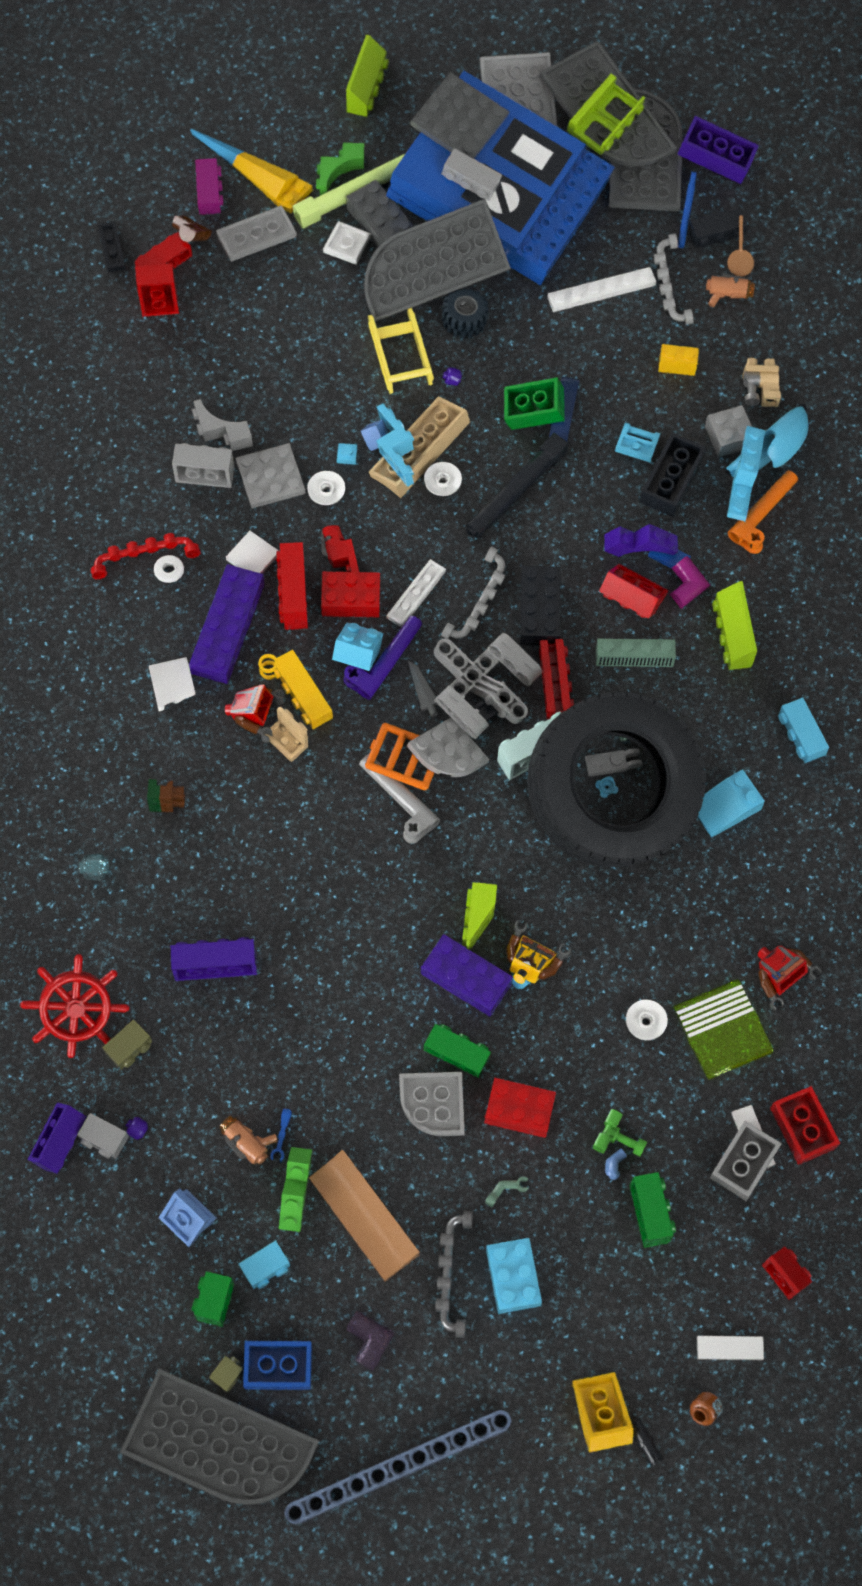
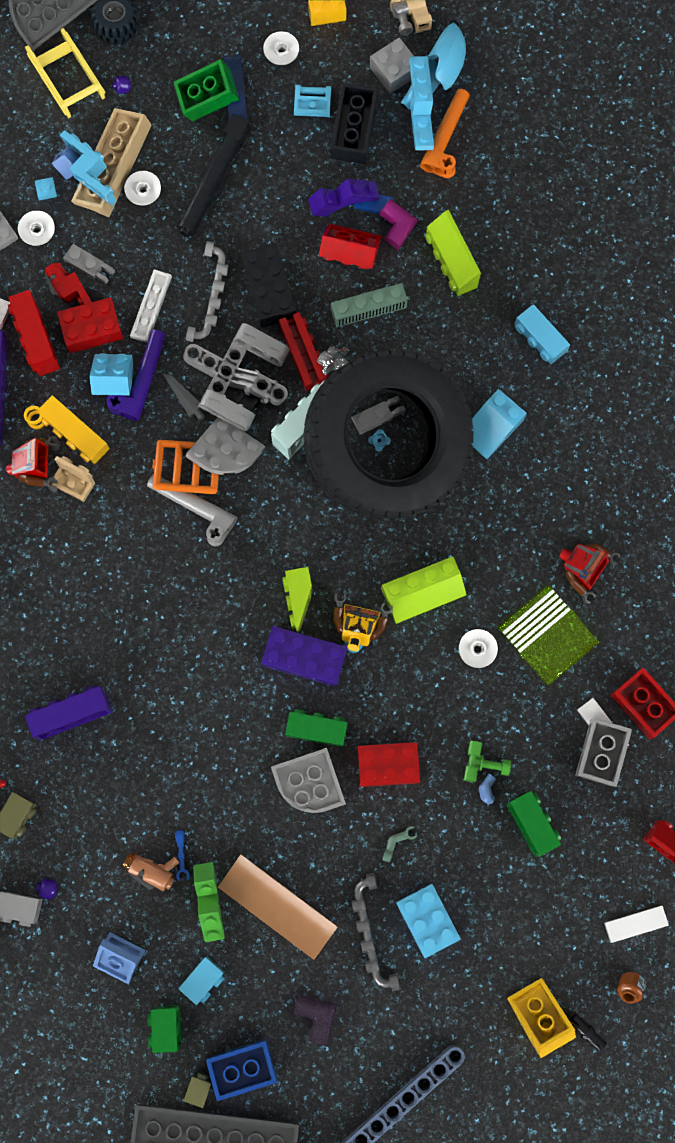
camera: 15 degrees left, 10 degrees up
(366, 535) = (87, 263): none -> light grey hinge
(581, 692) = (332, 359): none -> clear hips
(608, 945) = (424, 590): none -> lime slope
(621, 378) = (281, 41): none -> white dish

